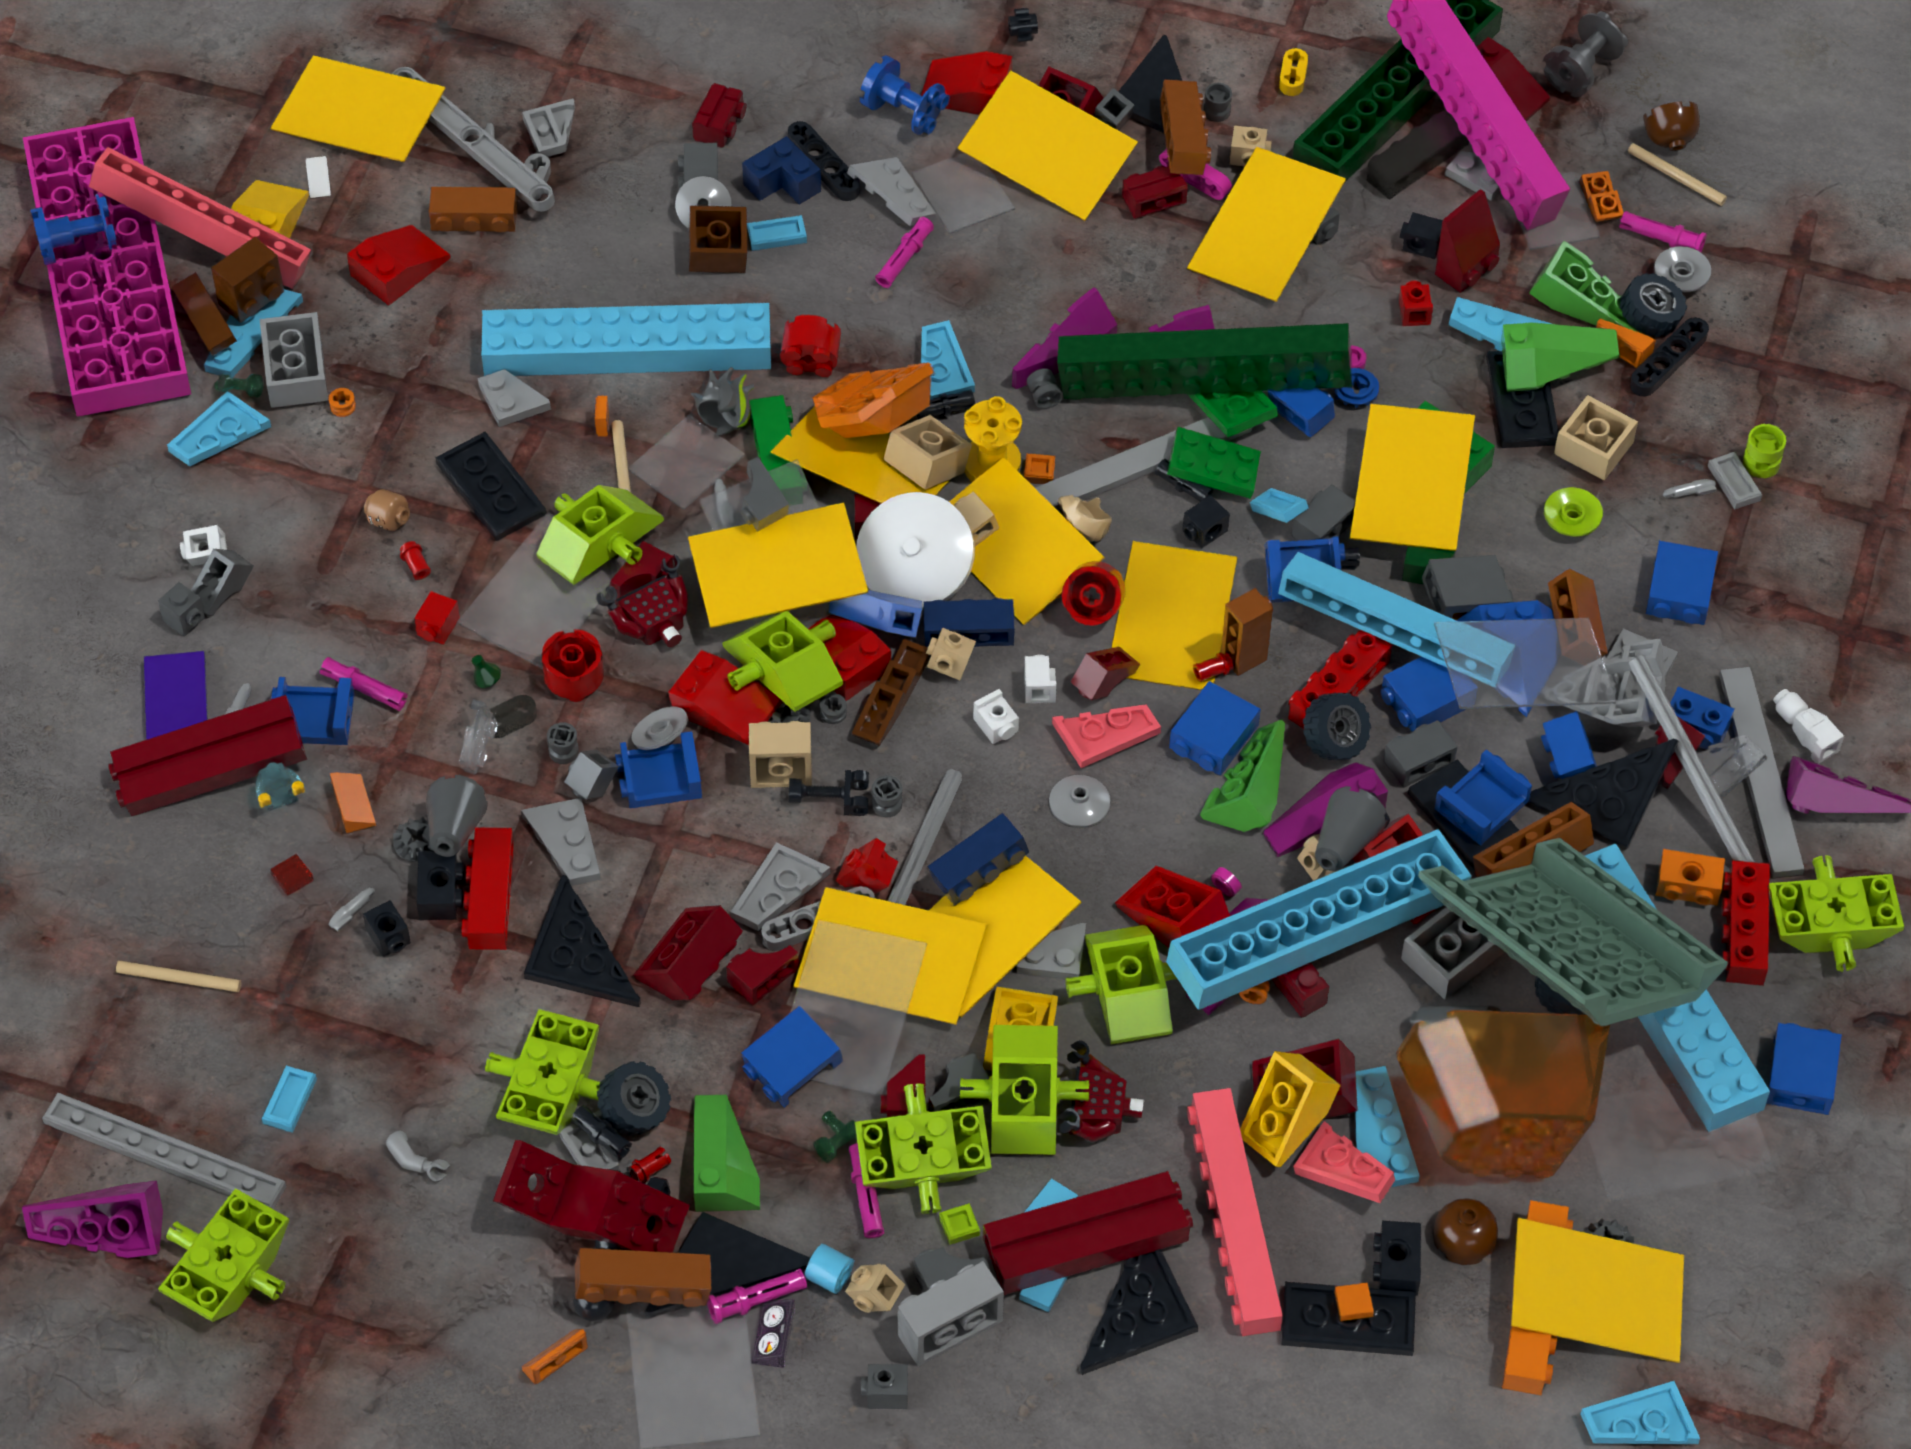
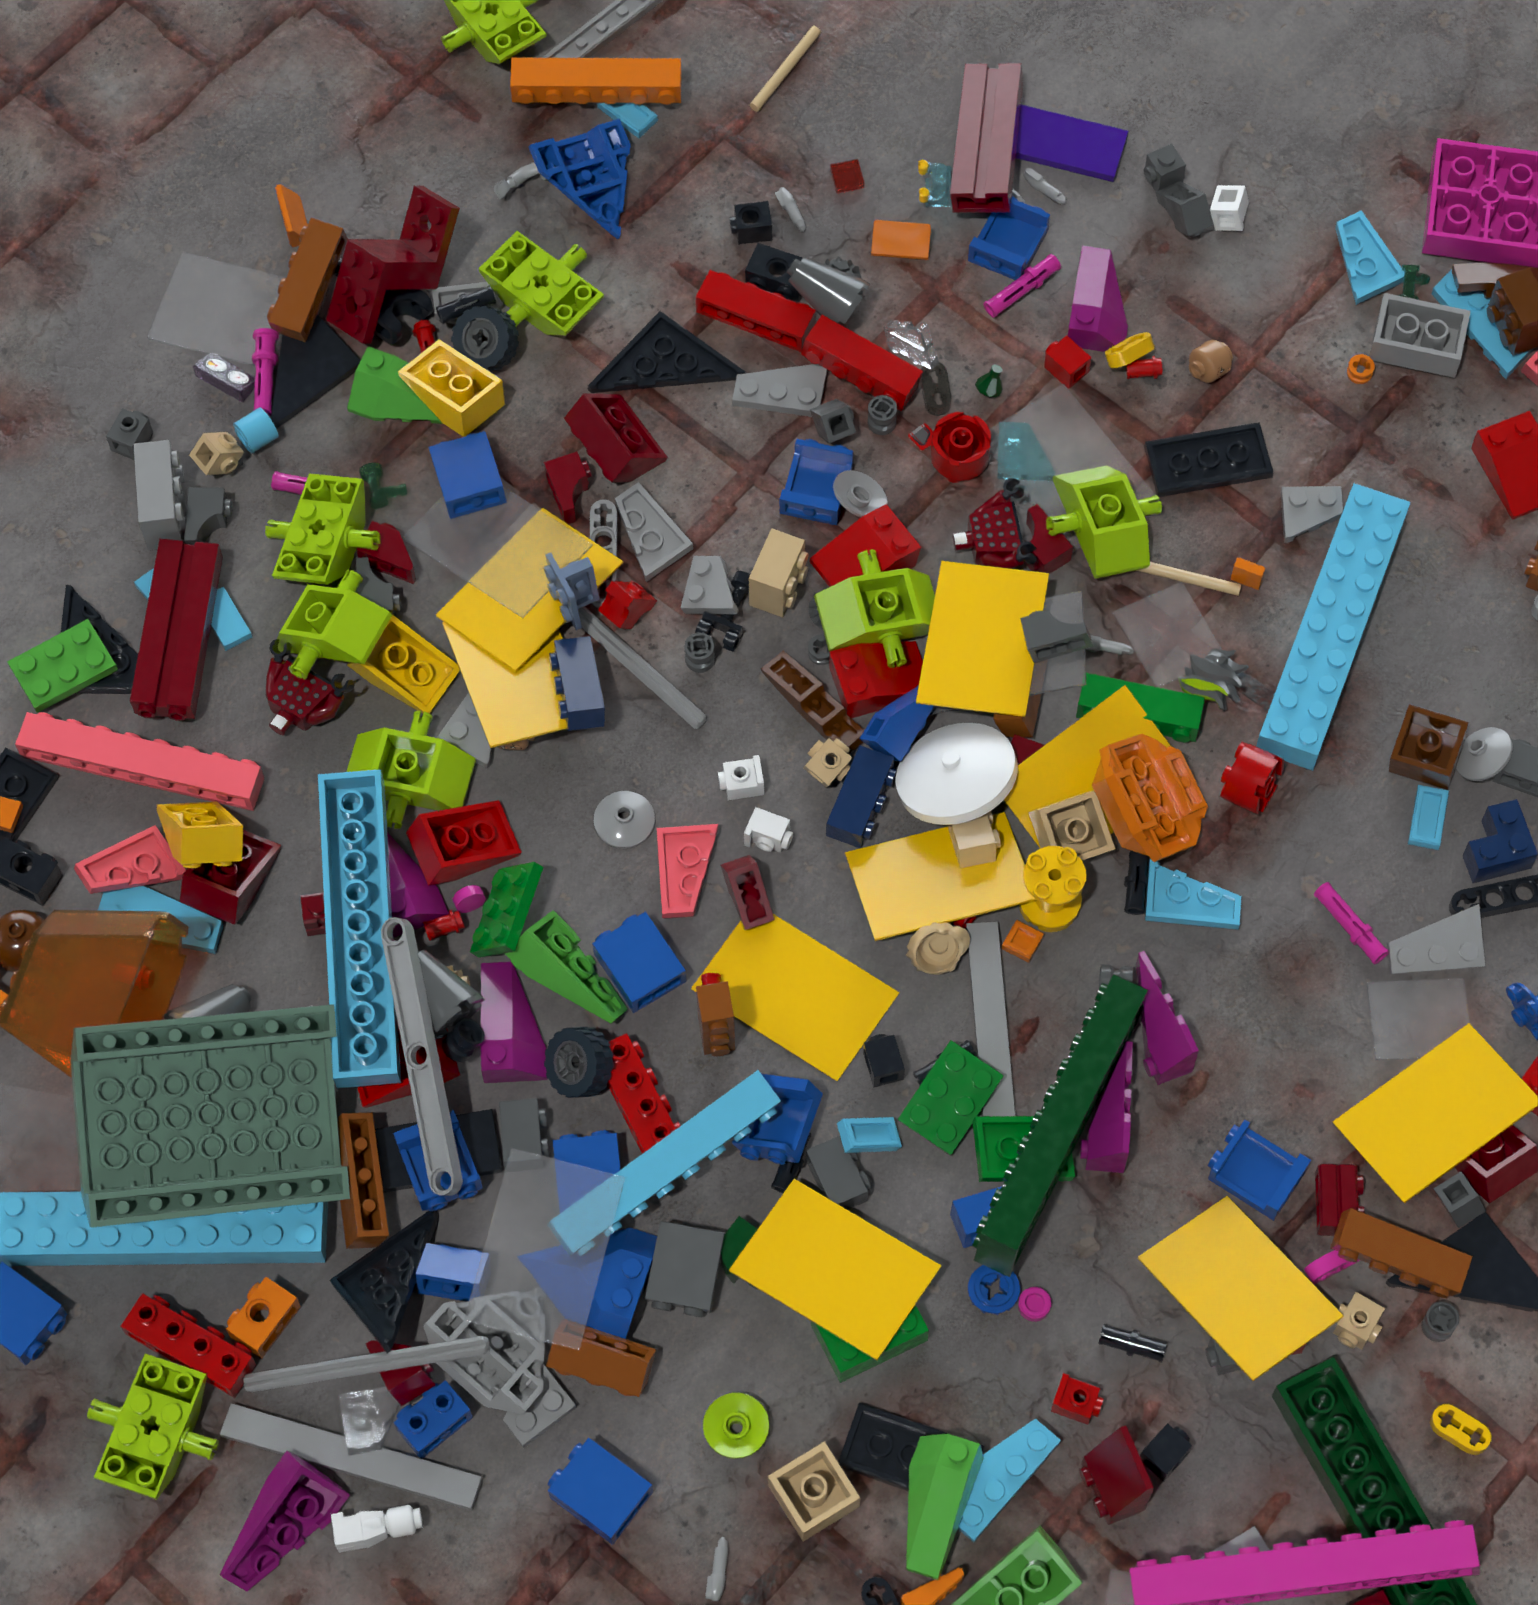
camera: 115 degrees right, 10 degrees up
(274, 1125) = (596, 80): none -> orange brick
(362, 621) = (1097, 305): none -> magenta wedge
(386, 1094) = (589, 170): none -> blue wedge
(403, 578) = (1129, 350): none -> yellow beam
(515, 774) = (860, 362): none -> red brick
(551, 618) = (1021, 454): none -> clear light blue wing
(564, 712) = (922, 436): none -> sticker
(703, 1100) = (454, 387): none -> yellow slope
(815, 814) = (708, 587): none -> light grey wing
(891, 894) = (572, 585): none -> sand blue bracket
(959, 1224) = (250, 549): lime tile -> none
(1080, 602) = (833, 909): red brick -> none
(1157, 246) = (1257, 1170): none -> blue panel
(1174, 1323) = (62, 665): none -> bright green plate
(1225, 838) = (506, 909): none -> green plate
(1256, 889) = (444, 925): none -> red pin
(1347, 284) = (1133, 1343): none -> black pin
(1398, 821) = (424, 1079): none -> light grey beam
(1416, 154) = (1281, 1490): clear smoke brick -> none

